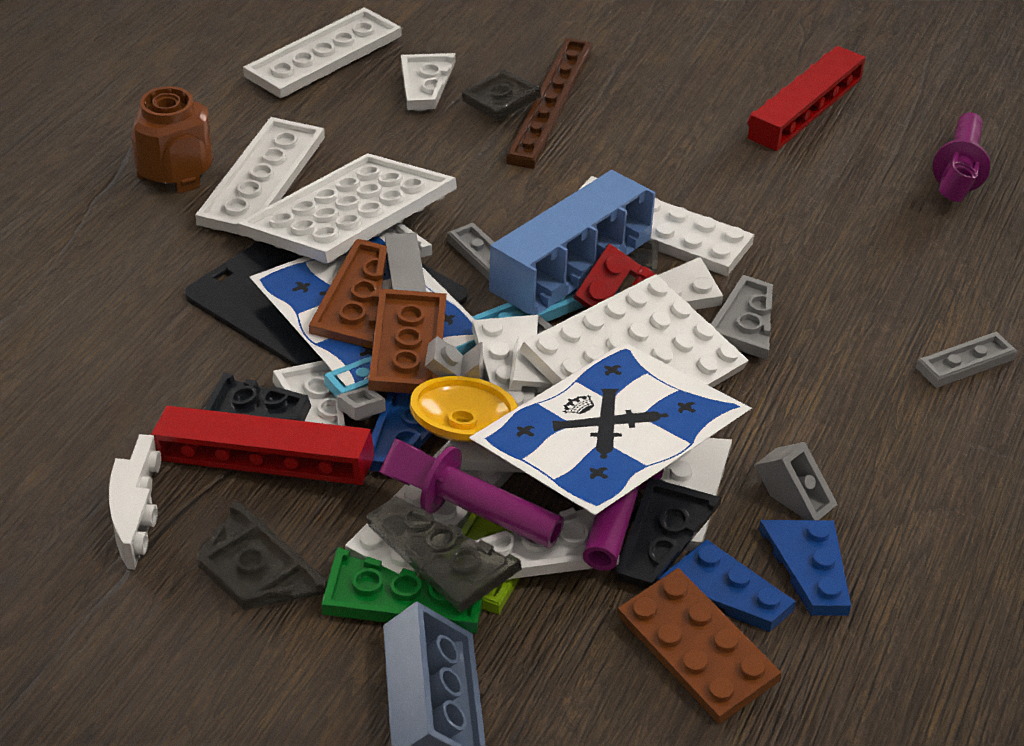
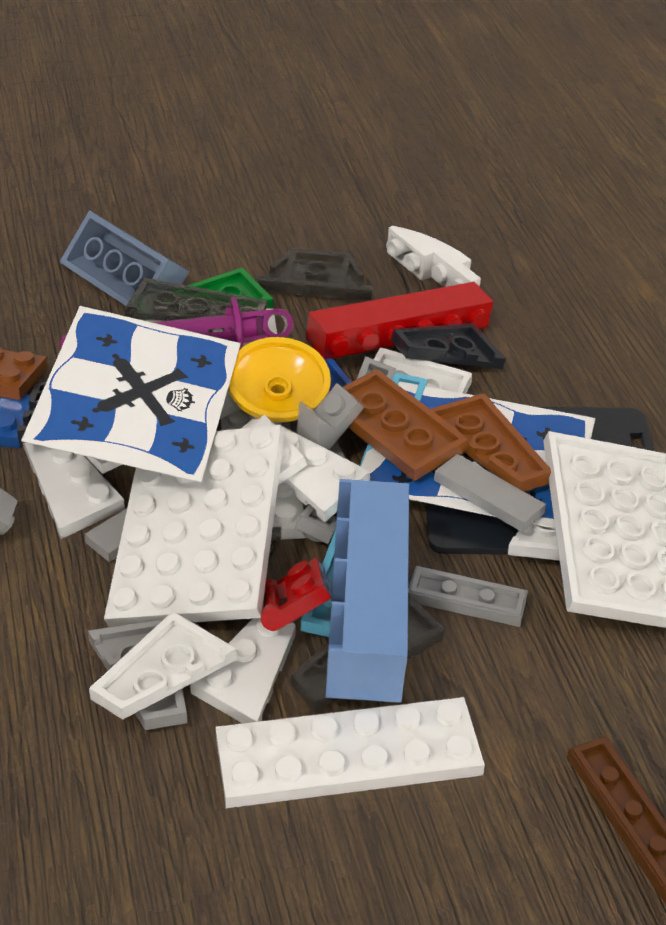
camera: 140 degrees right, 0 degrees up
(730, 294) = (160, 665): none -> white wing

